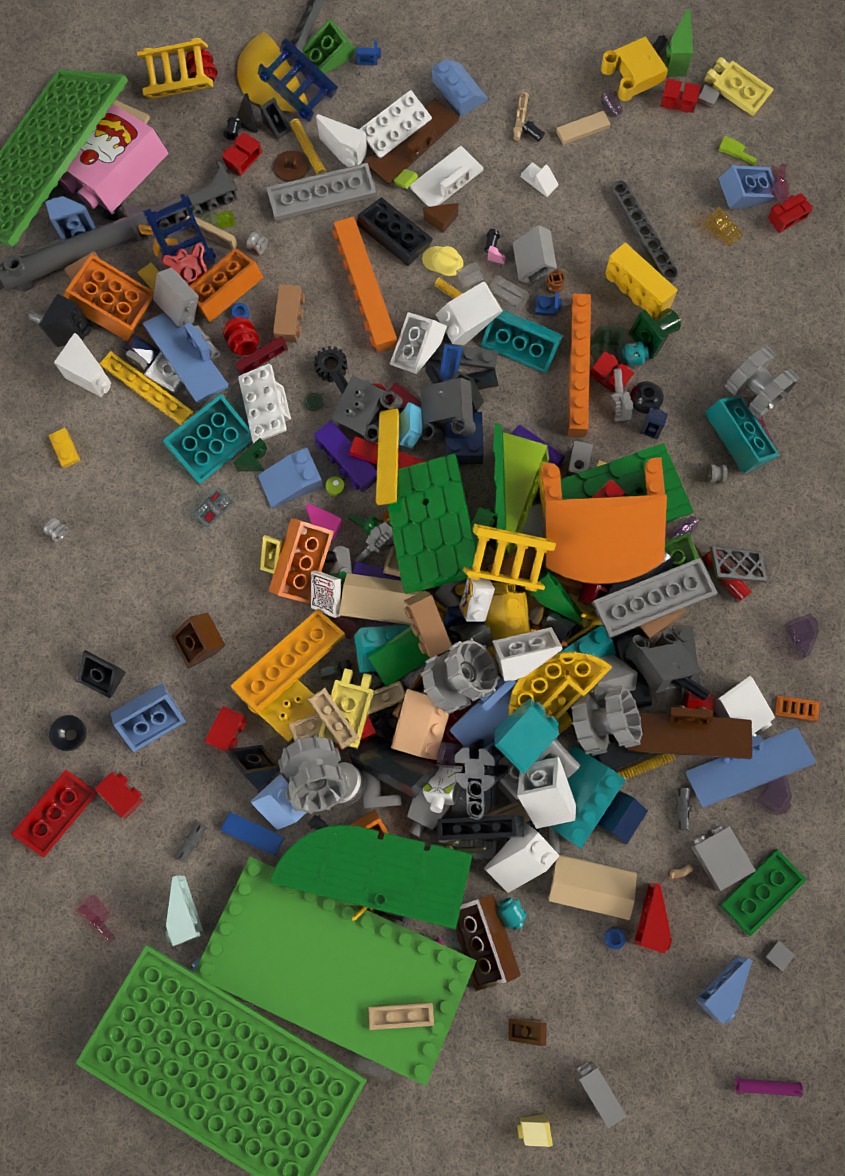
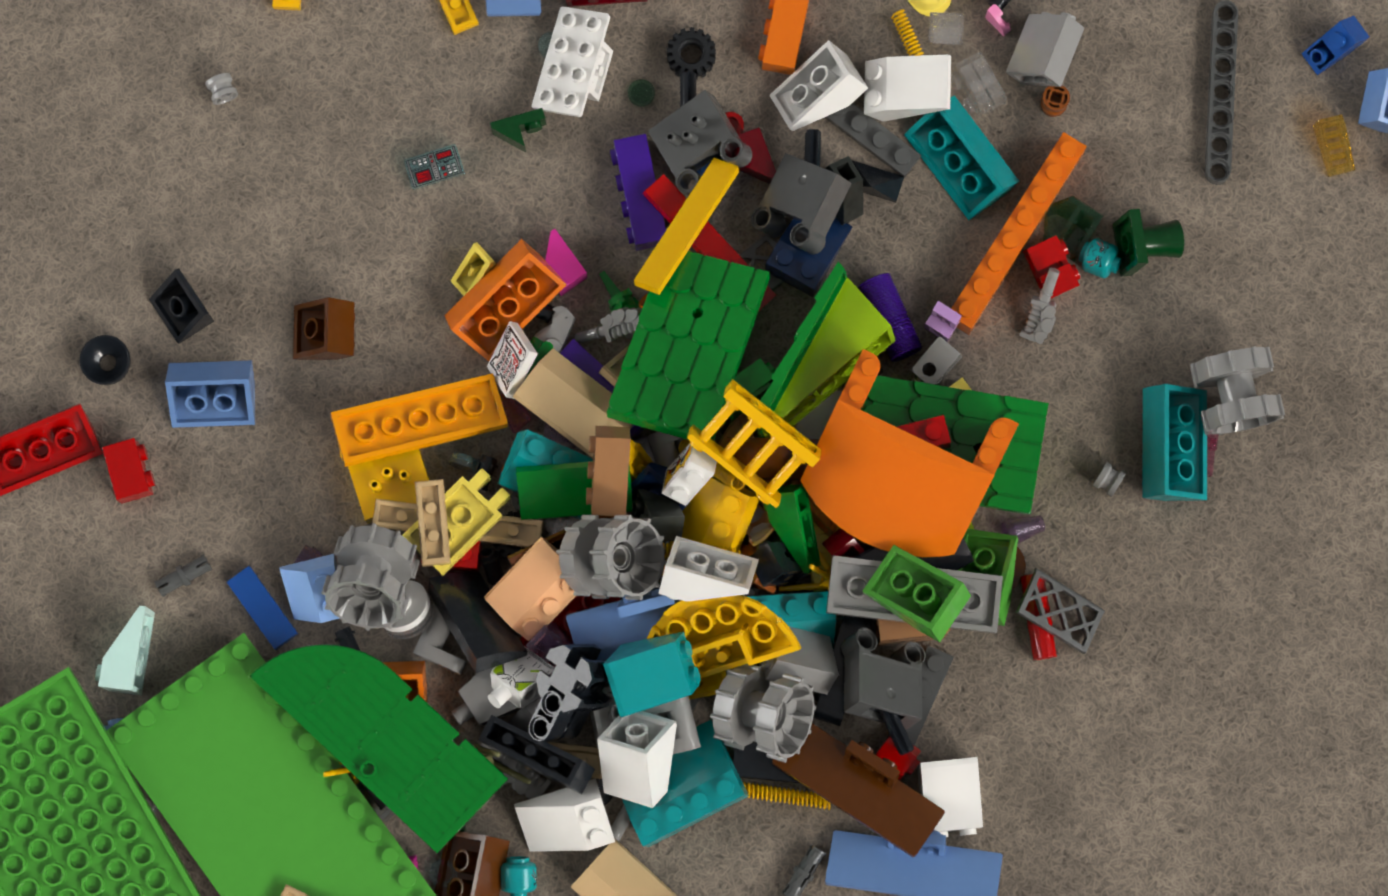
camera: 30 degrees right, 5 degrees up
(97, 914) = (28, 600): clear pink piece -> none
(208, 438) = (477, 71): teal slope -> none
(225, 729) = (298, 462): red piece -> none
(254, 764) = (308, 524): black slope -> none
(290, 478) = (553, 182): medium blue slope -> none
(335, 486) = (605, 223): lime tile -> none
(410, 425) = (743, 197): medium azure slope -> none
(450, 361) = (847, 137): blue tile -> none
(548, 305) = (1026, 127): blue bracket -> none
(568, 433) = (942, 321): none -> lavender slope
(622, 817) = (721, 840): dark blue slope -> none
(640, 281) = (1164, 163): yellow brick -> none
(644, 403) = (1075, 337): black piece -> none
(654, 422) = (1067, 365): dark blue slope -> none
(659, 594) = (917, 593): none -> bright green slope
(690, 174) = (1335, 44): none -> blue slope
(803, 634) = (1089, 743): clear purple slope -> none
(814, 713) = (1014, 840): orange slope -> none

